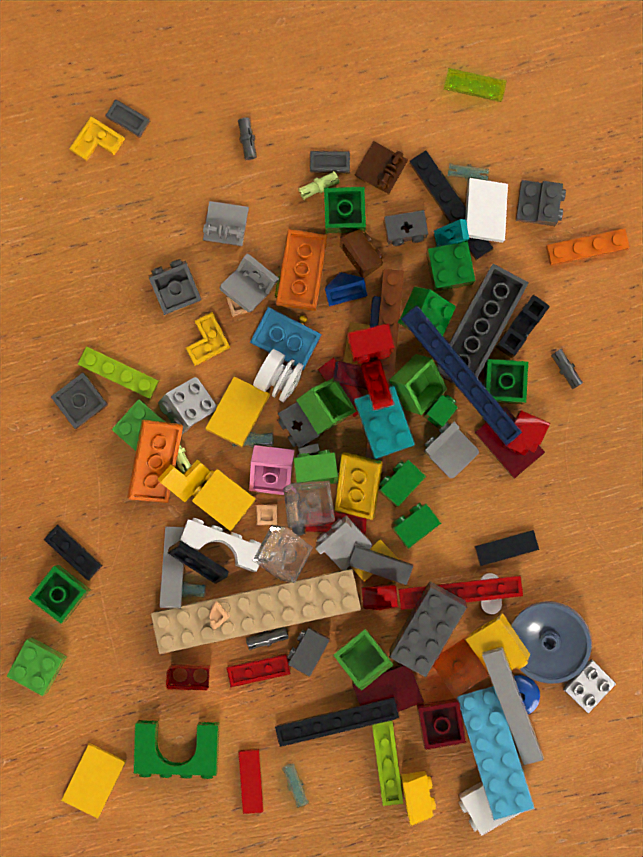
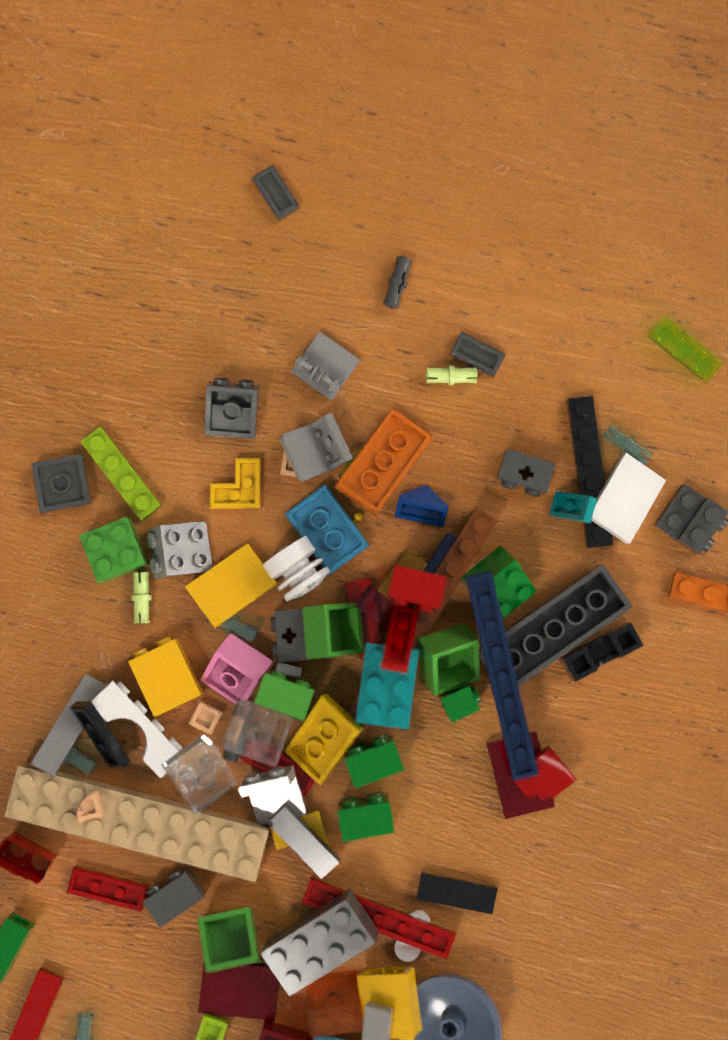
camera: 25 degrees right, 0 degrees up
(95, 134) = (228, 192): yellow tile -> none
(155, 452) = (109, 595): orange tile -> none
(184, 484) = (132, 638): yellow tile -> none
(267, 638) = (134, 858): dark grey pin -> none
(337, 721) = (165, 994): black plate -> none
(344, 209) = (466, 418): green brick -> none
(361, 253) = (460, 476): reddish brown slope -> none
(380, 597) = (284, 878): red piece -> none
(381, 167) = (532, 390): reddish brown hinge -> none
(450, 266) = (553, 542): green brick -> none
(451, 450) = (449, 750): light grey bracket -> none
(506, 380) = (551, 704): green brick -> none
(567, 369) = (627, 724): dark grey pin -> none

